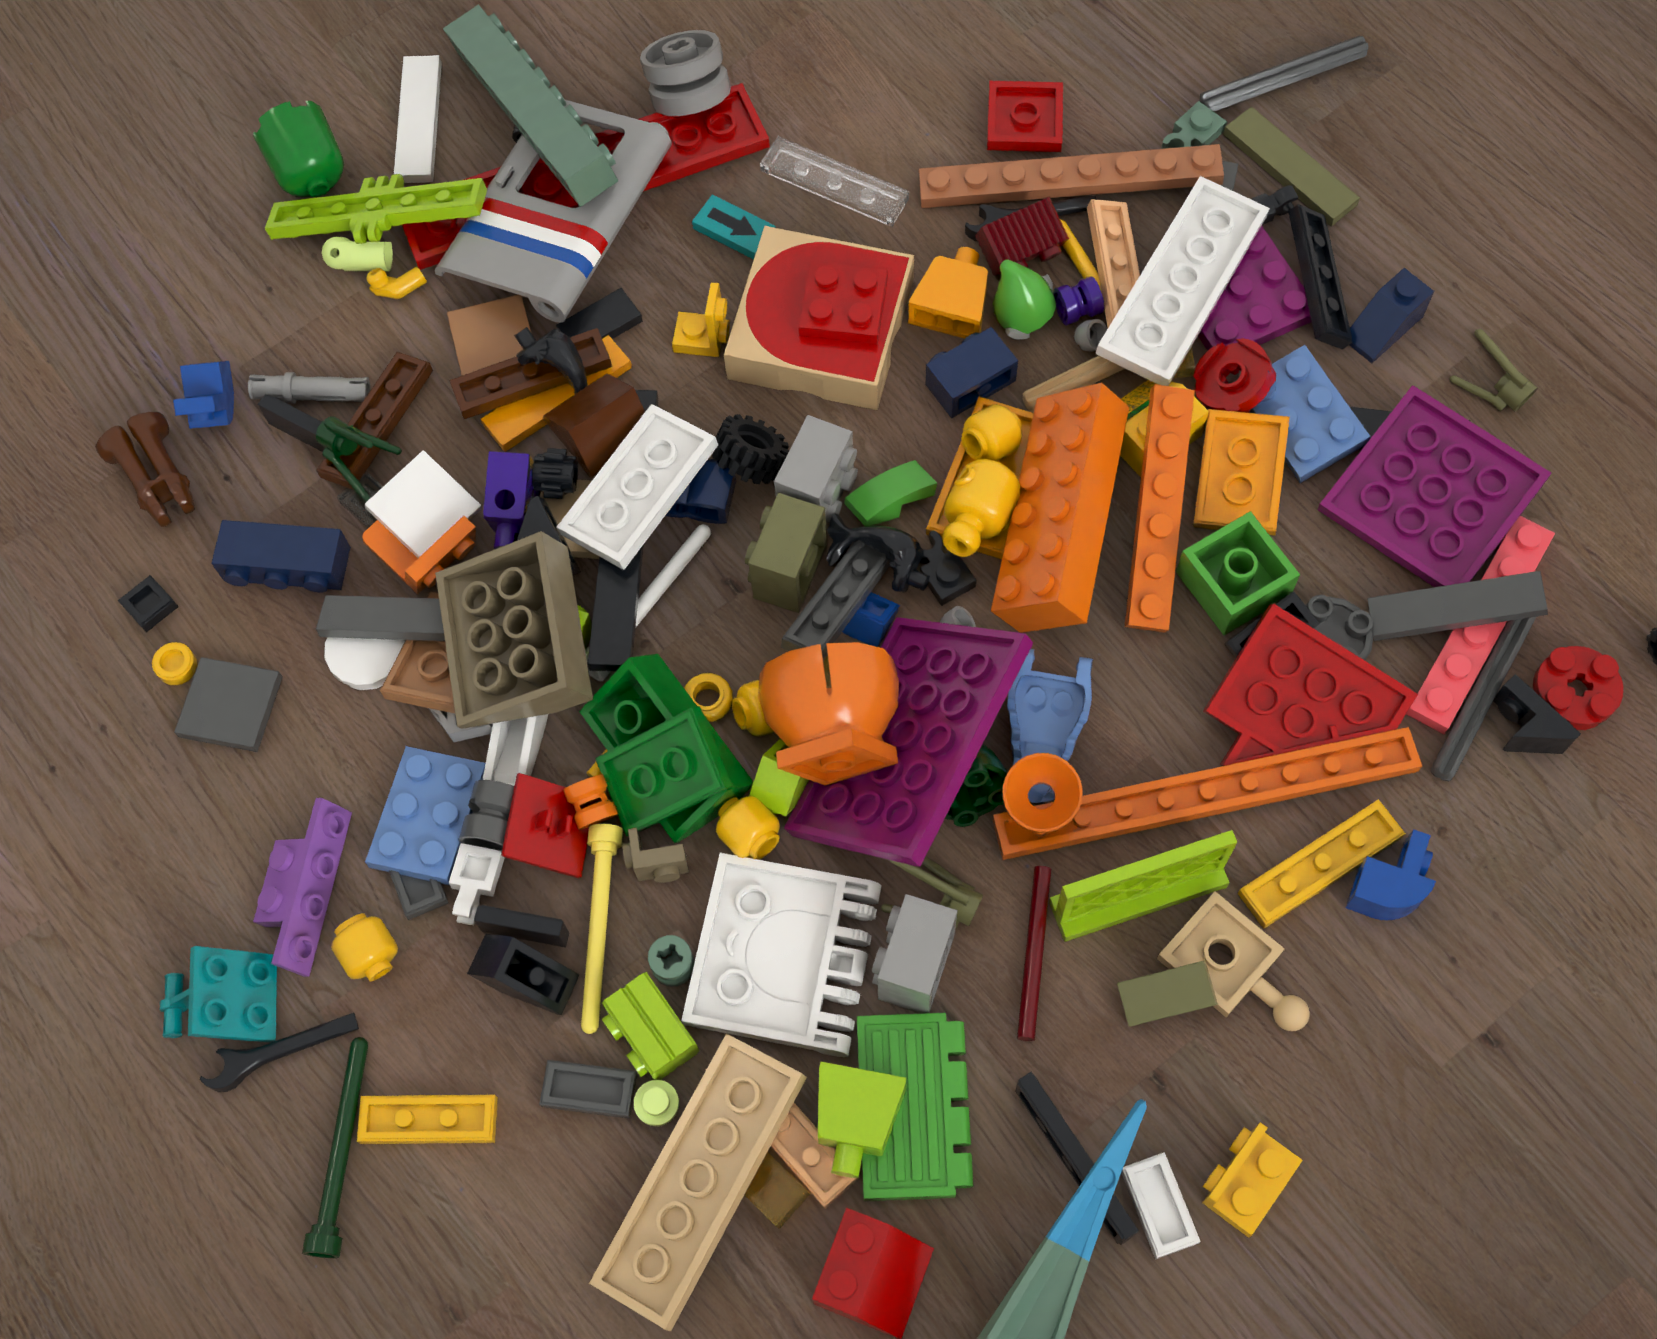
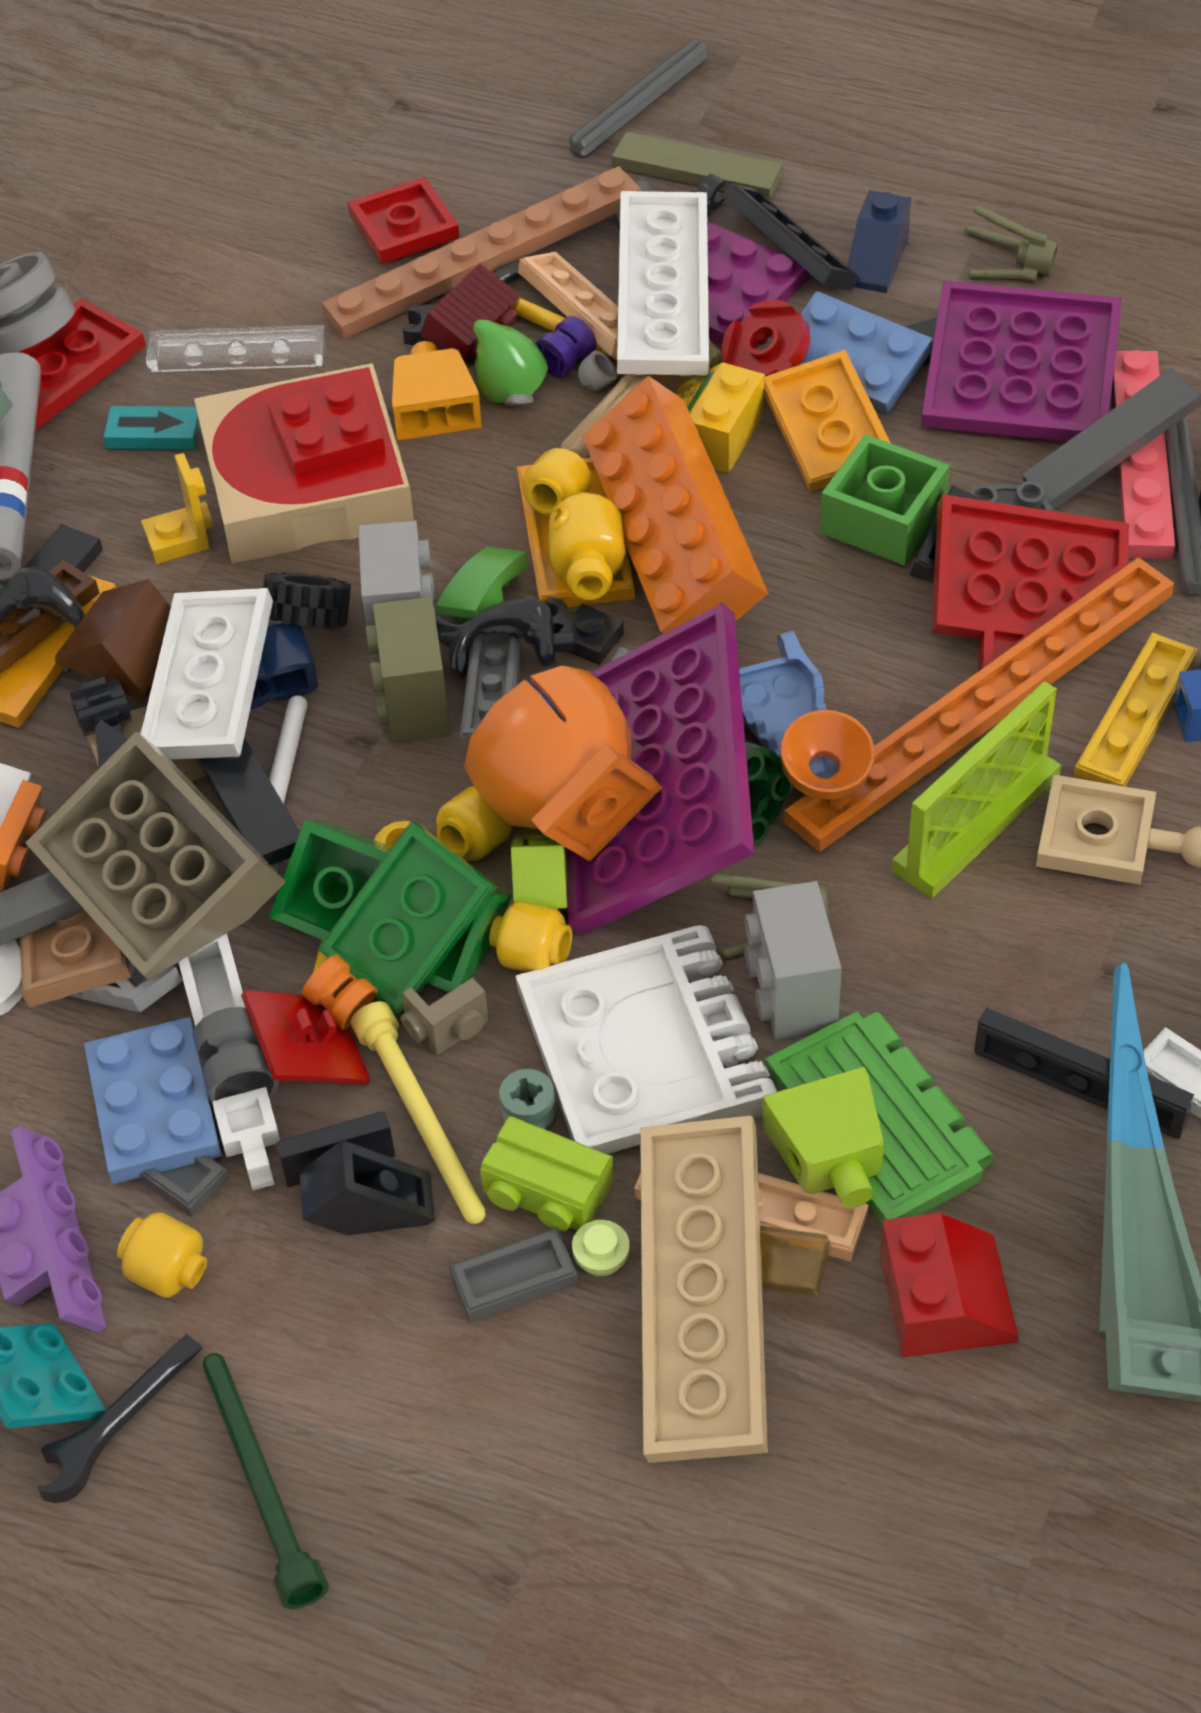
camera: 30 degrees left, 15 degrees down
(427, 1119) = (343, 1397): yellow tile -> none
(507, 494) = (64, 760): dark purple torso -> none
(971, 370) = (493, 446): dark blue brick -> none
(1034, 953) = (910, 920): dark red bar -> none
(1159, 508) = (772, 476): orange plate -> none
(1167, 993) = (1070, 883): olive tile -> none
(1195, 128) = (582, 165): sand green plate -> none

